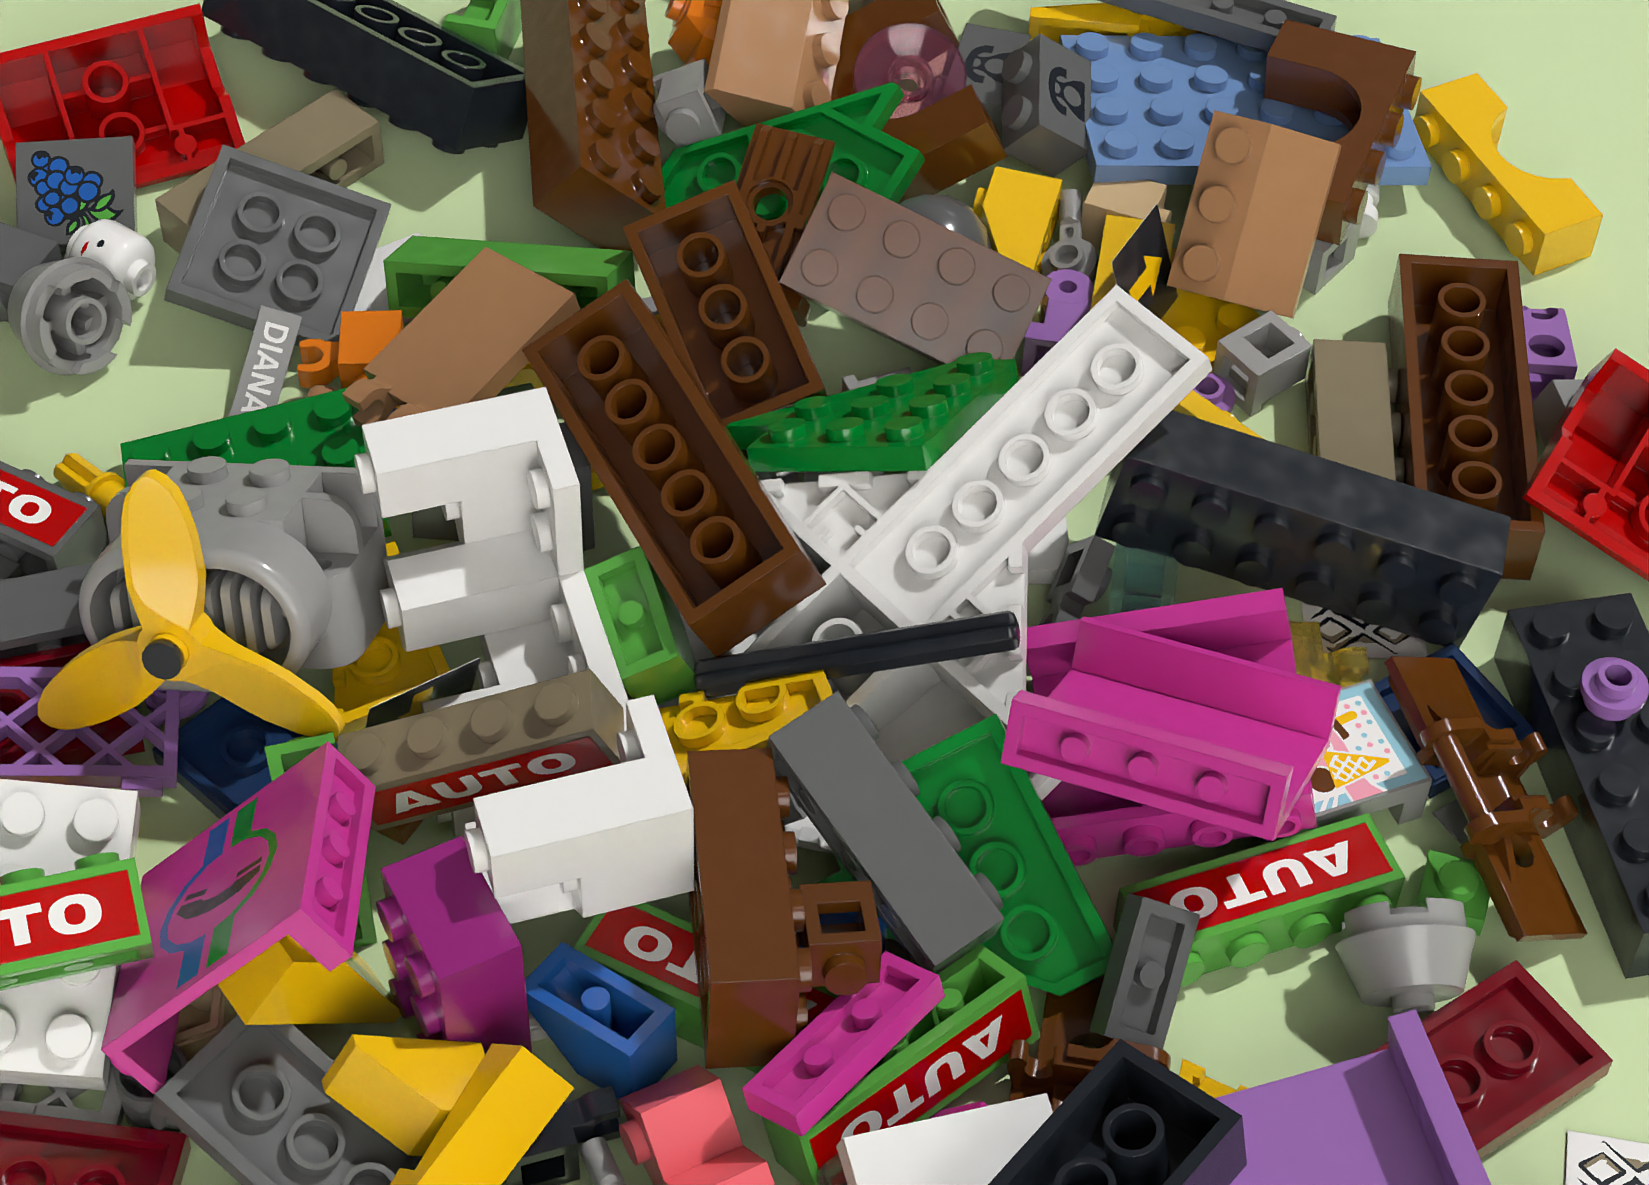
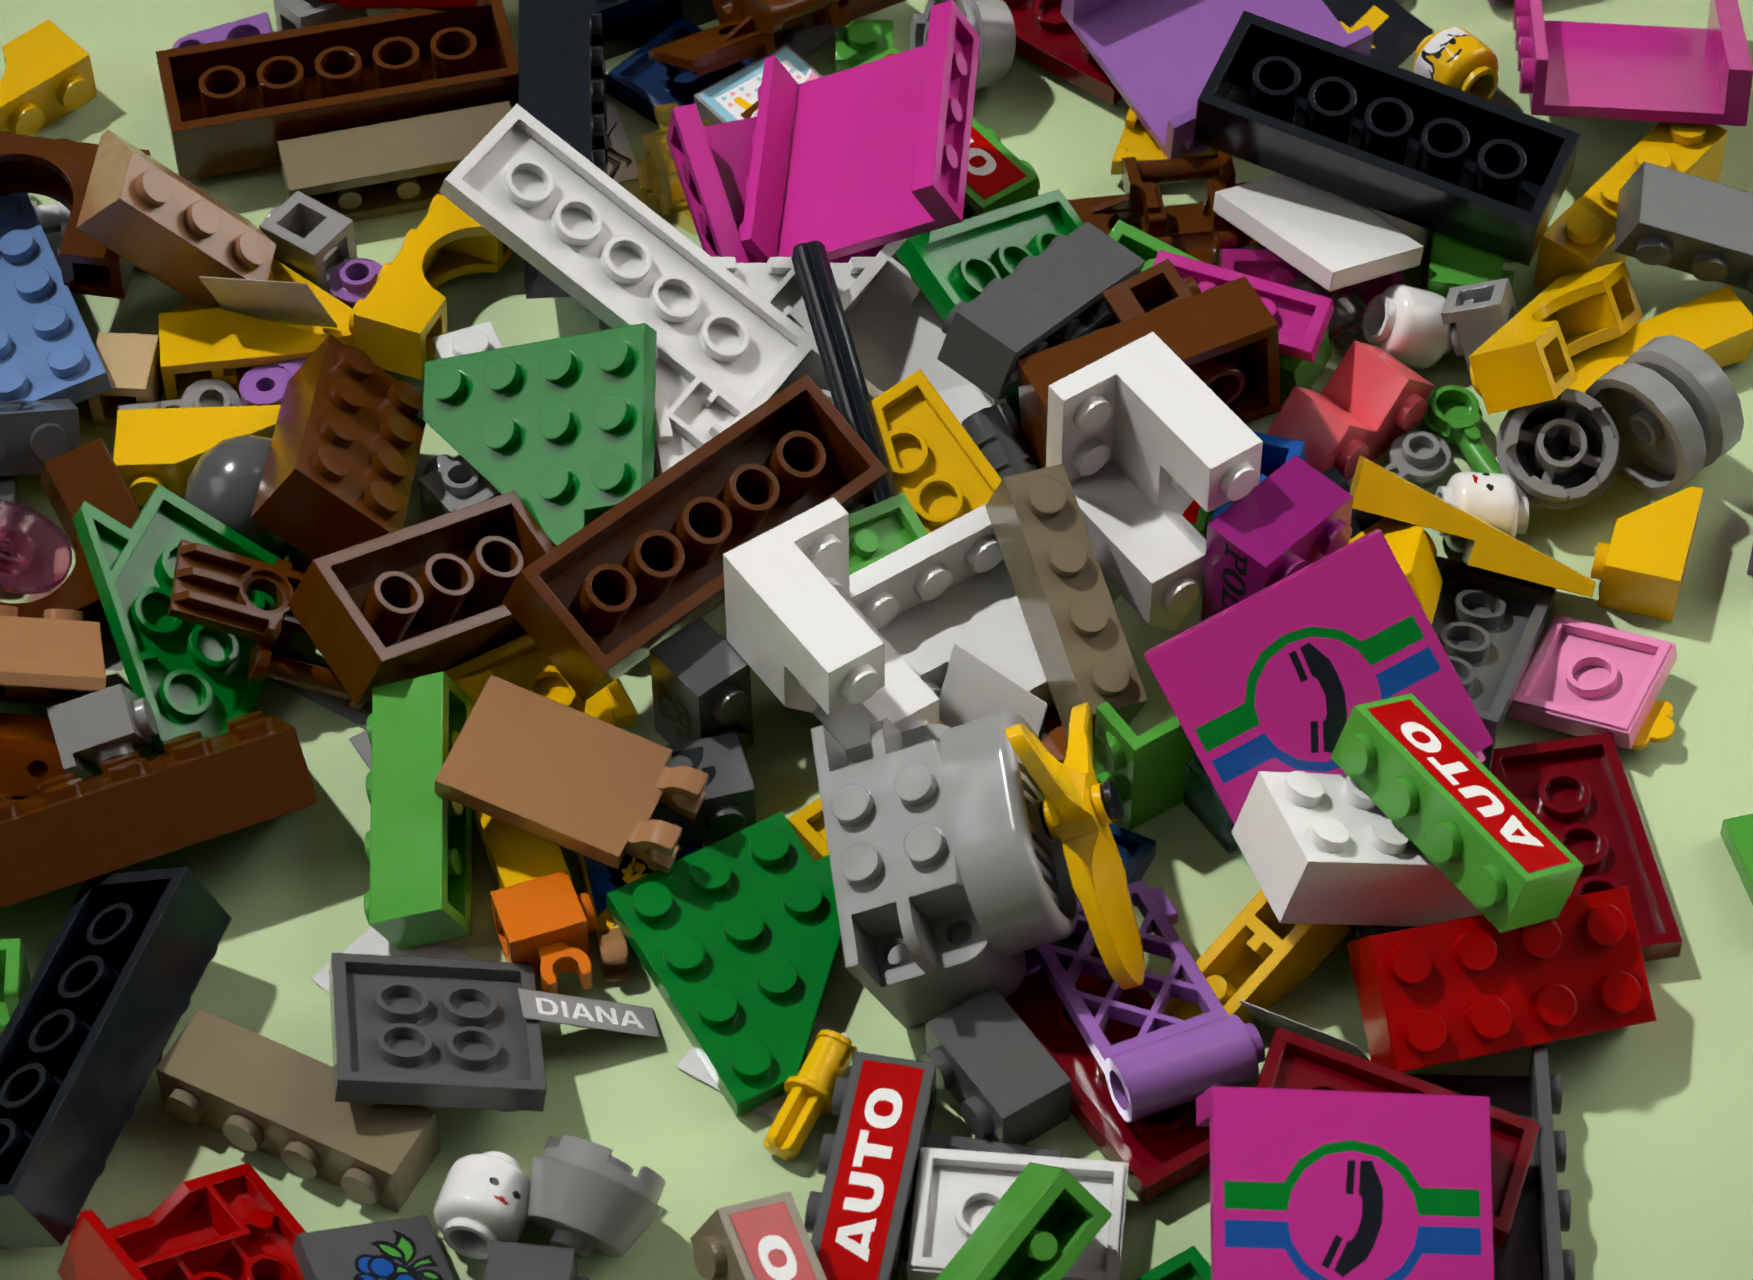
camera: 105 degrees left, 0 degrees up
(1144, 971) = (1087, 179): dark grey plate -> none

